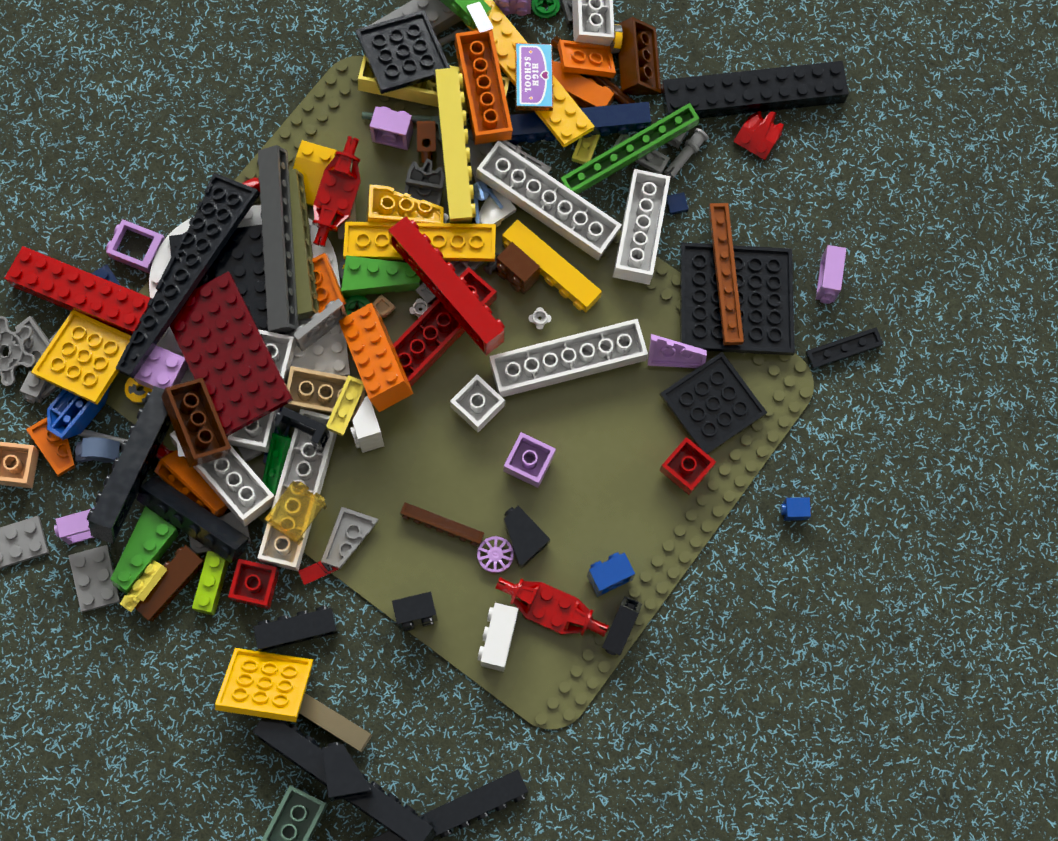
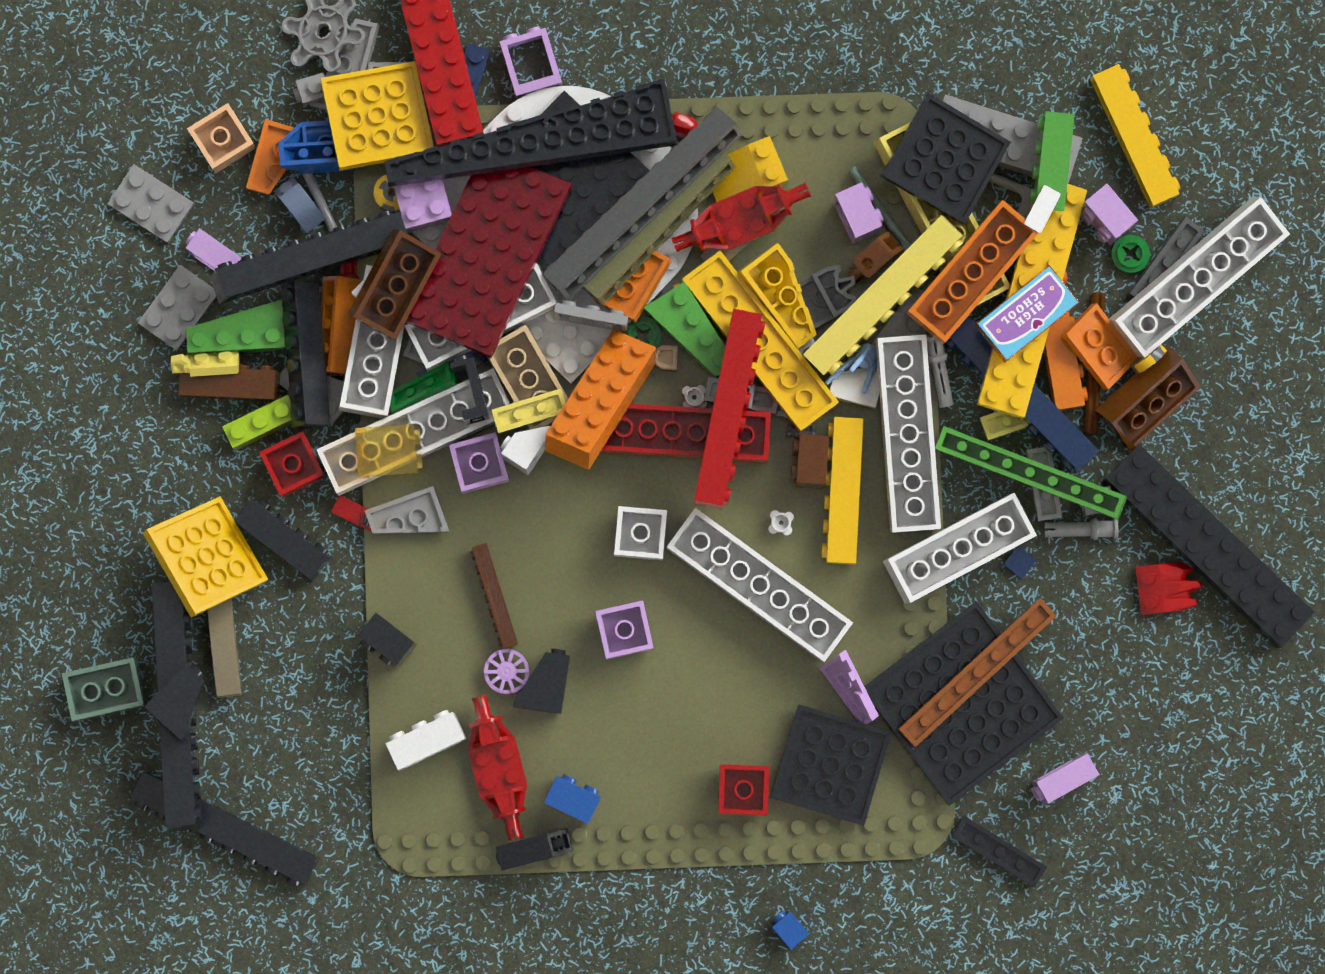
camera: 50 degrees right, 10 degrees up
(351, 466) = (479, 463): none -> lavender brick

